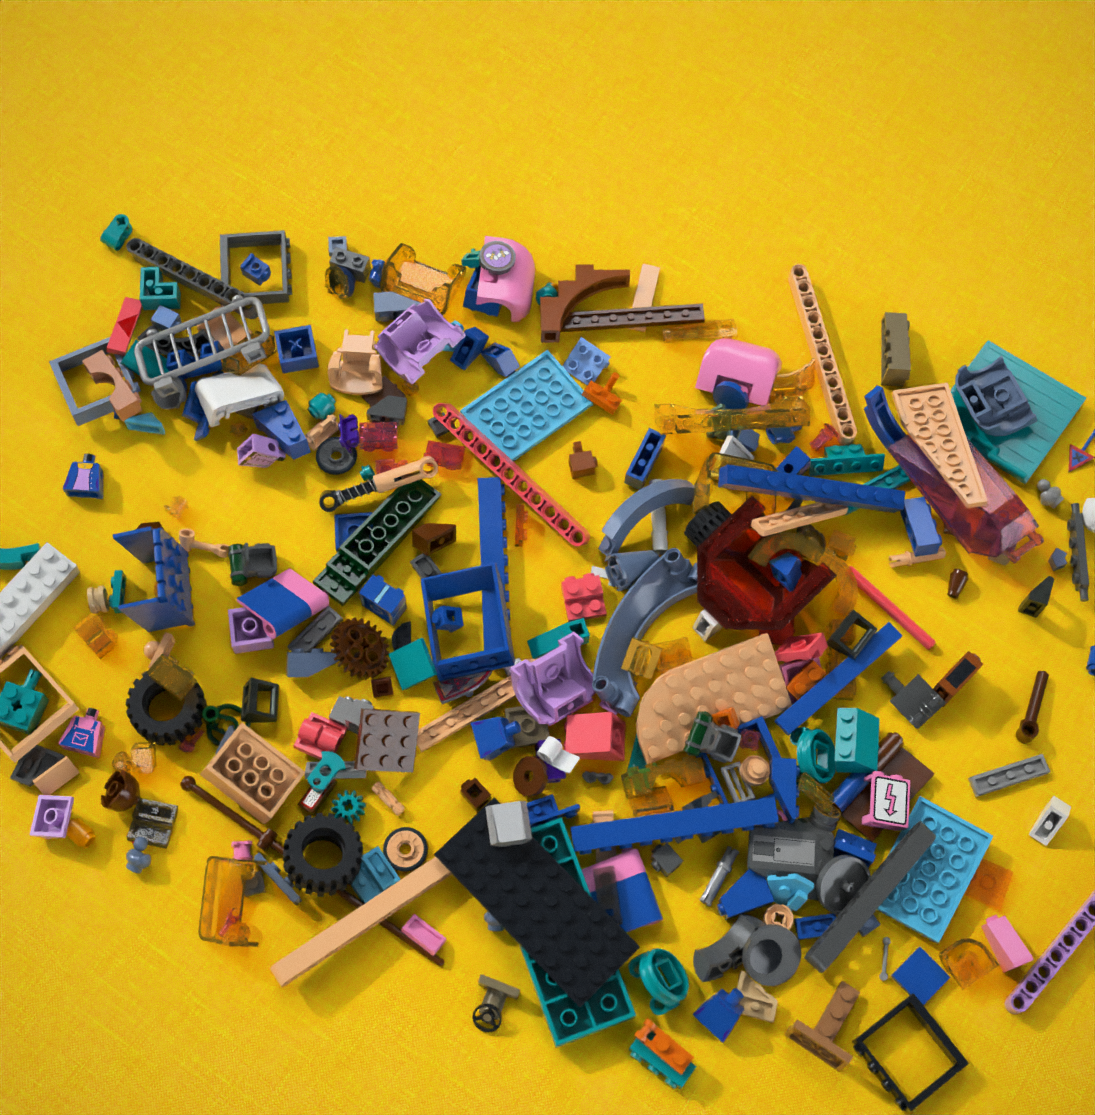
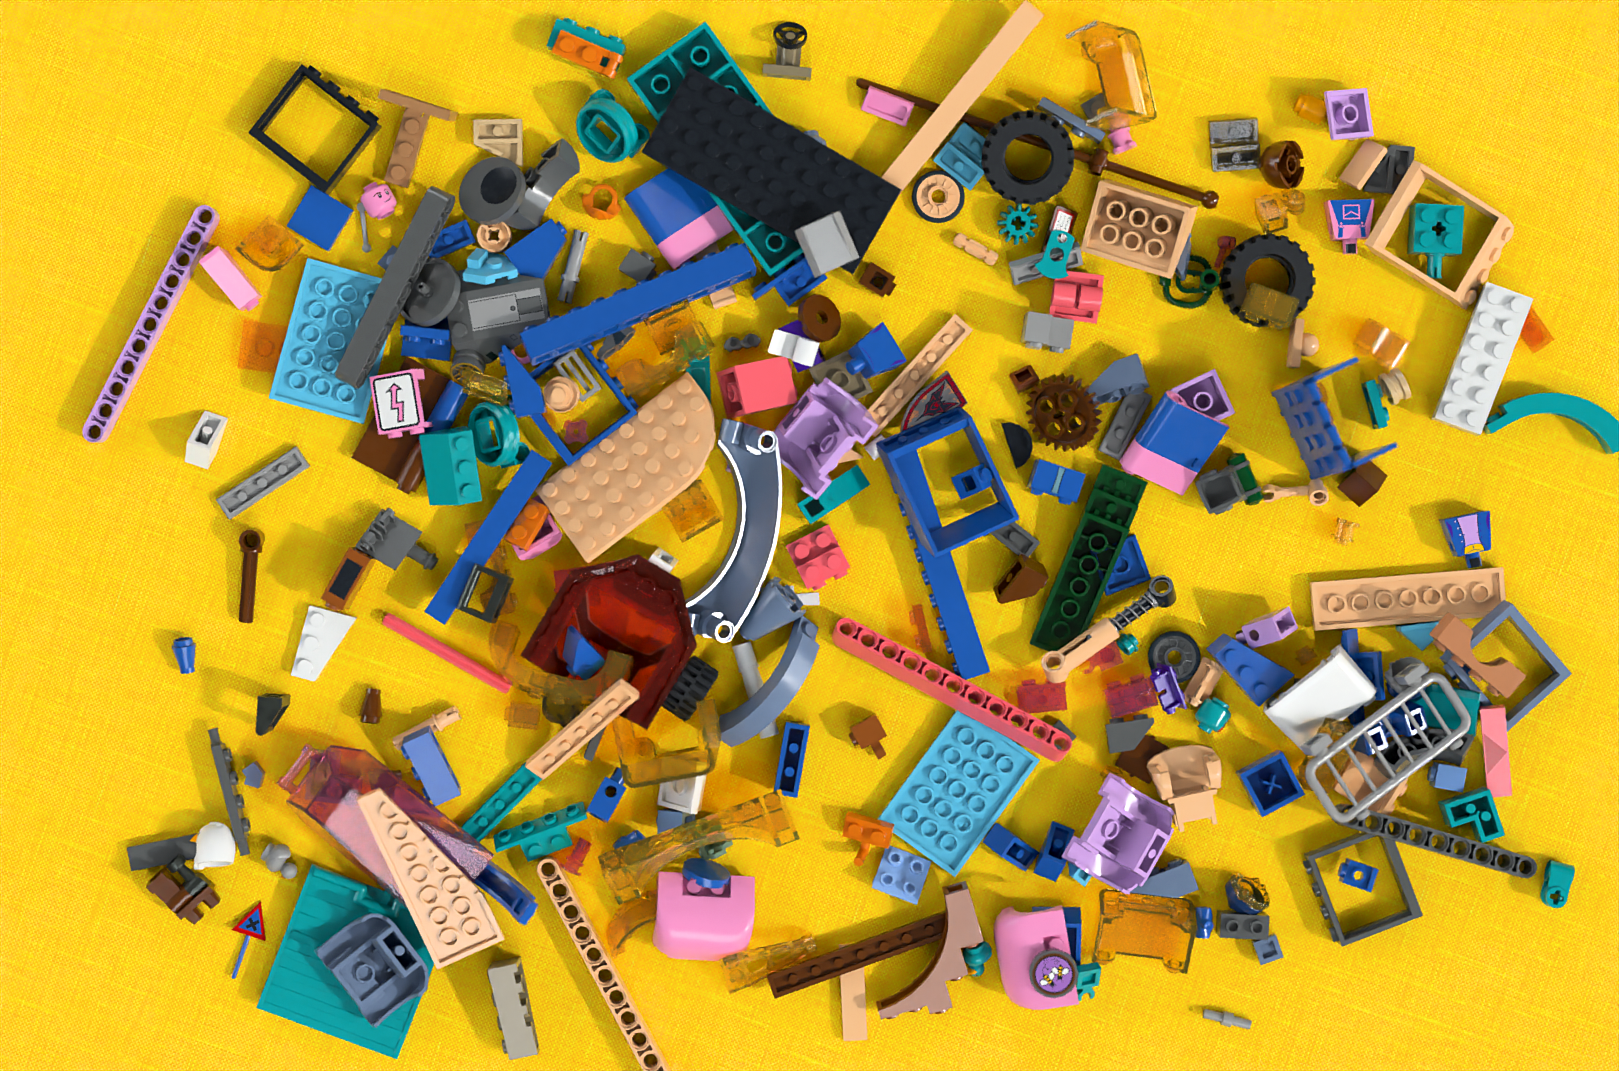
camera: 170 degrees right, 20 degrees up
(136, 859) = (1236, 97): sand blue animal -> none
(149, 448) = (1406, 598): none -> light nougat plate
(230, 920) = (1107, 57): hand -> none
(249, 701) = (1172, 315): pearl dark grey tile -> none
(382, 211) = (1226, 1019): none -> light grey bar
(386, 740) = (996, 308): plate -> none
(412, 664) = (996, 413): teal tile -> none
(608, 892) = (693, 207): clear smoke plate -> none
(641, 658) = (728, 496): clear yellow piece -> none
(690, 913) = (612, 210): none -> orange piece
(712, 739) = (619, 415): dark grey piece -> none
(721, 1012) = (534, 111): blue torso -> none
(726, 717) = (609, 446): orange slope -> none
(802, 647) = (542, 560): coral plate -> none
(811, 488) = (576, 767): blue brick -> none
(868, 975) = (378, 200): none -> bright pink head
(988, 641) = (319, 640): none -> white wing

